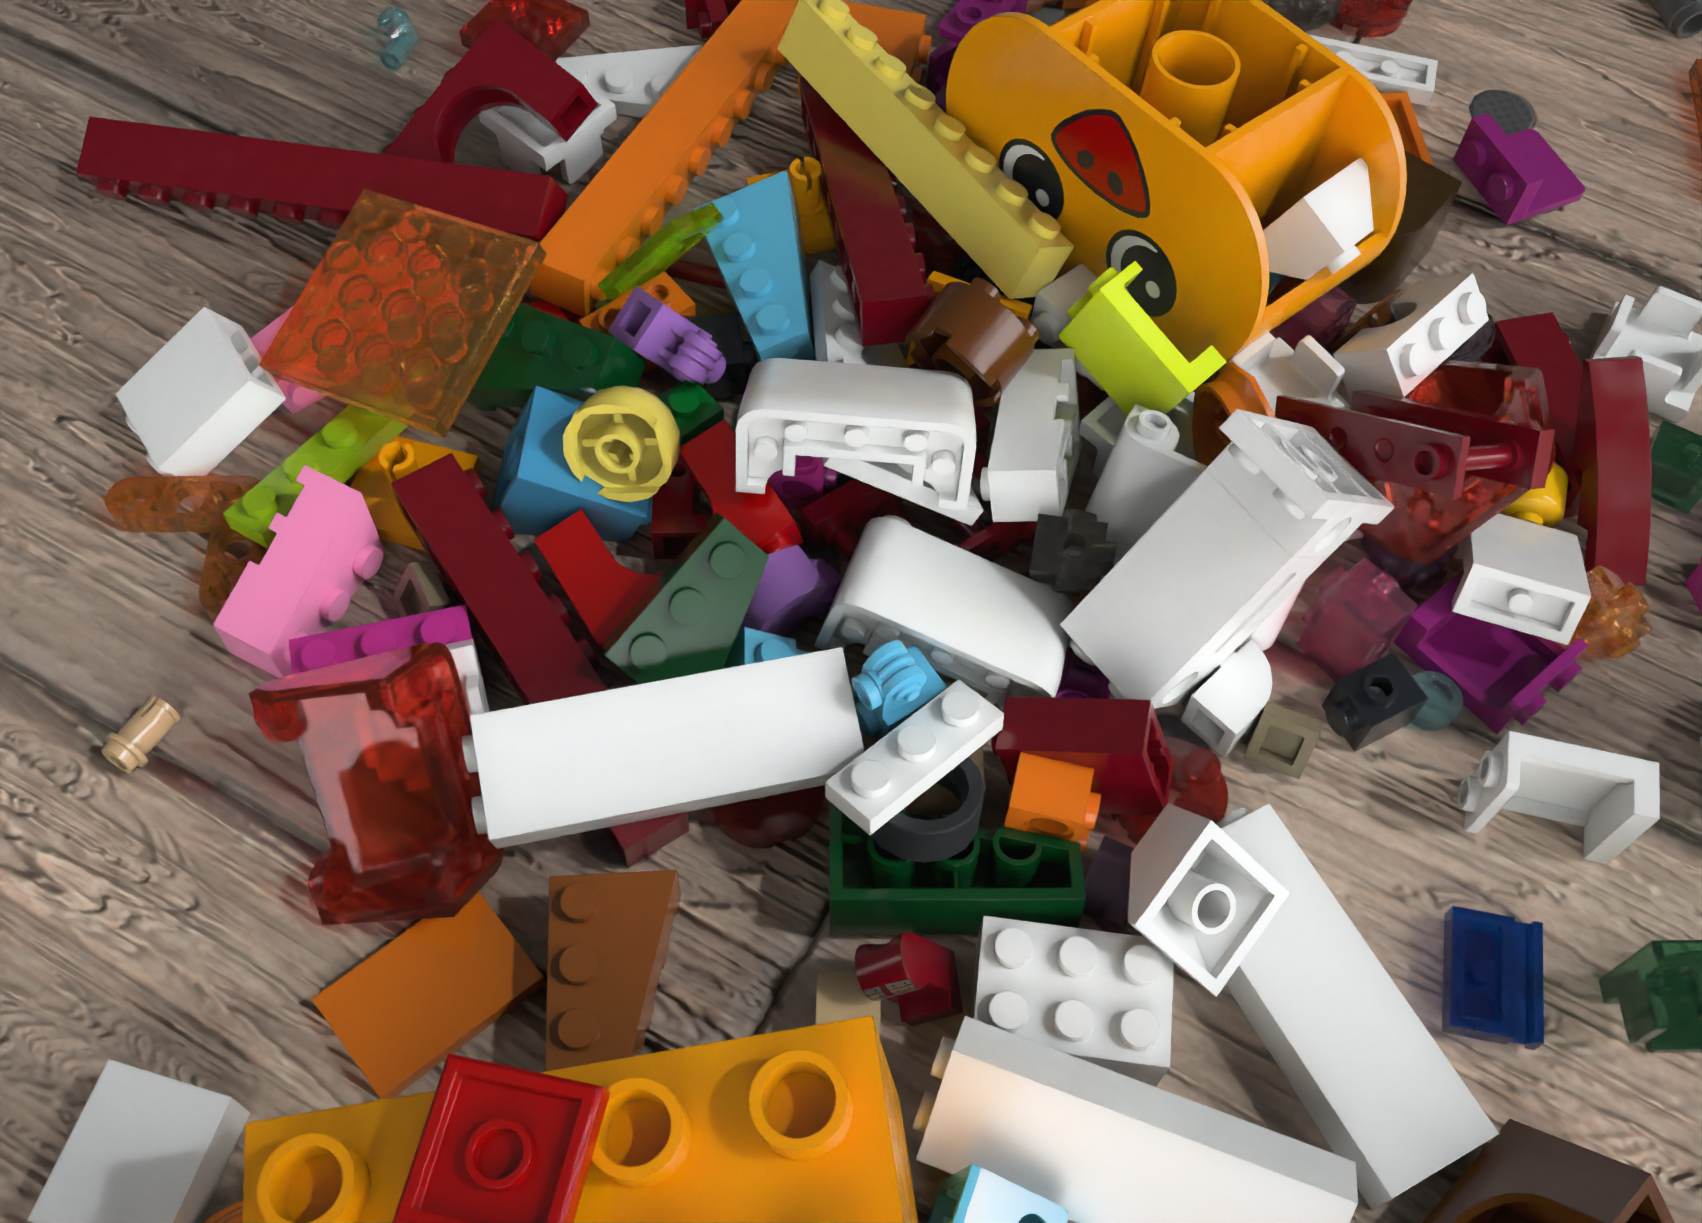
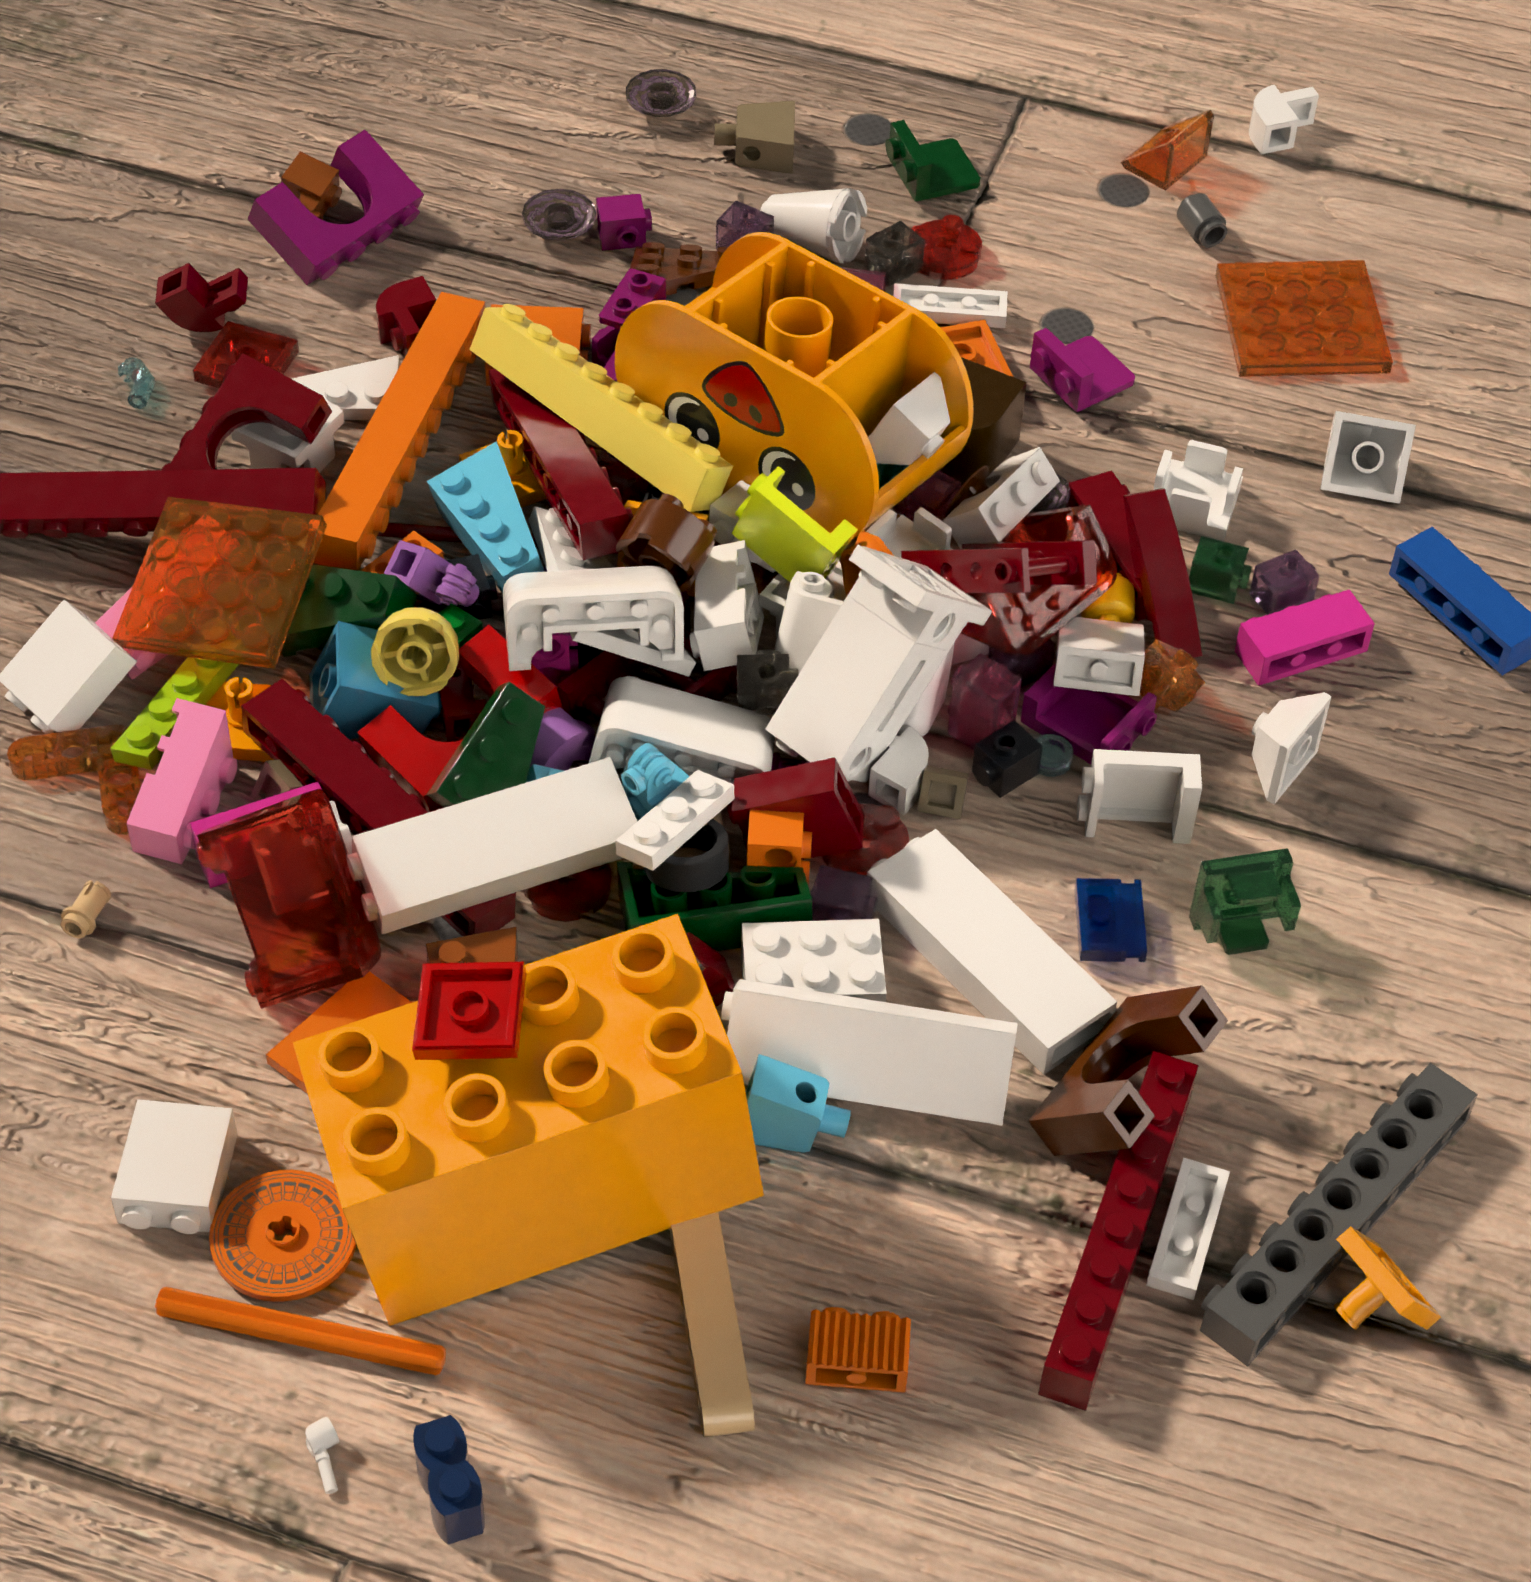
camera: 10 degrees left, 10 degrees down
(661, 250) = (412, 513): clear neon green tile -> none
(1199, 896) = (892, 883): white slope -> none

